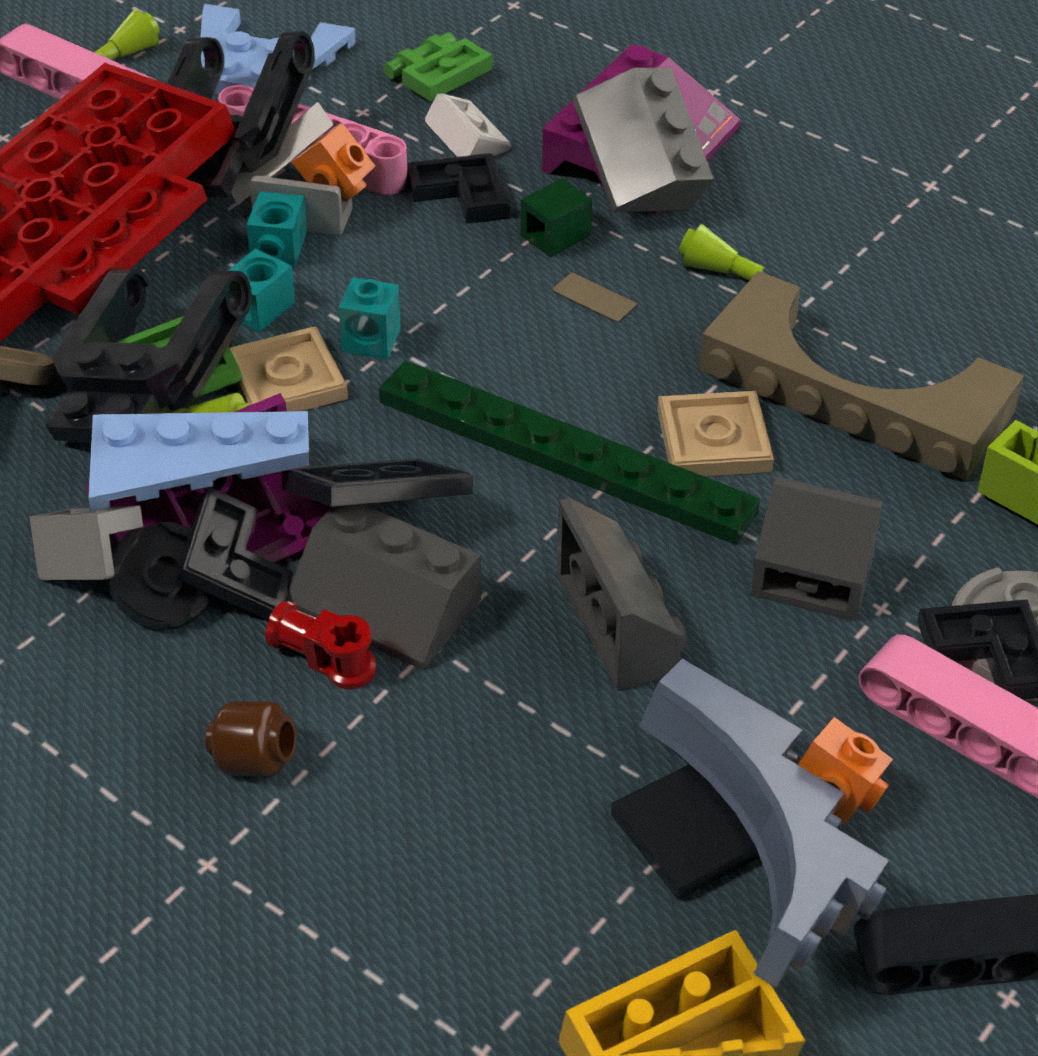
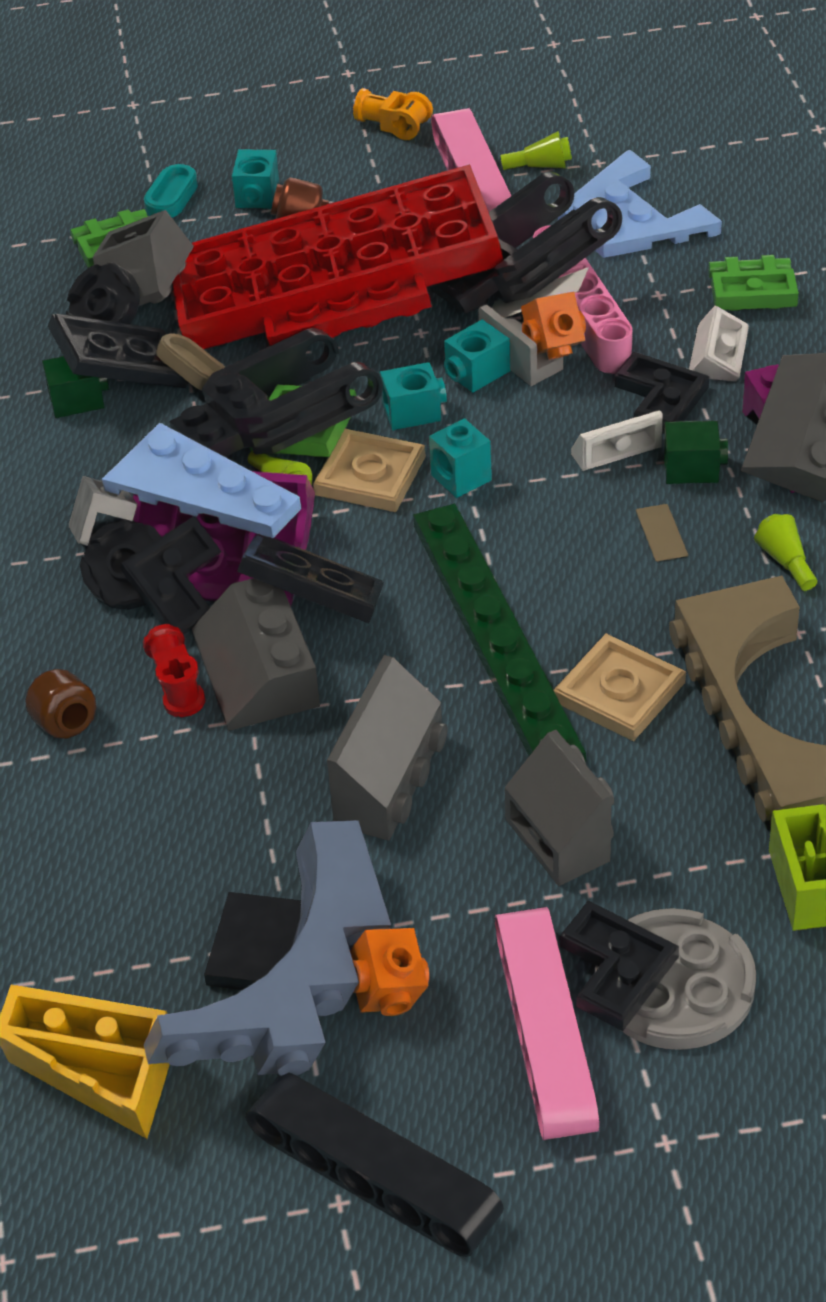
camera: 45 degrees right, 0 degrees up
(482, 241) = (618, 441): none -> white slope

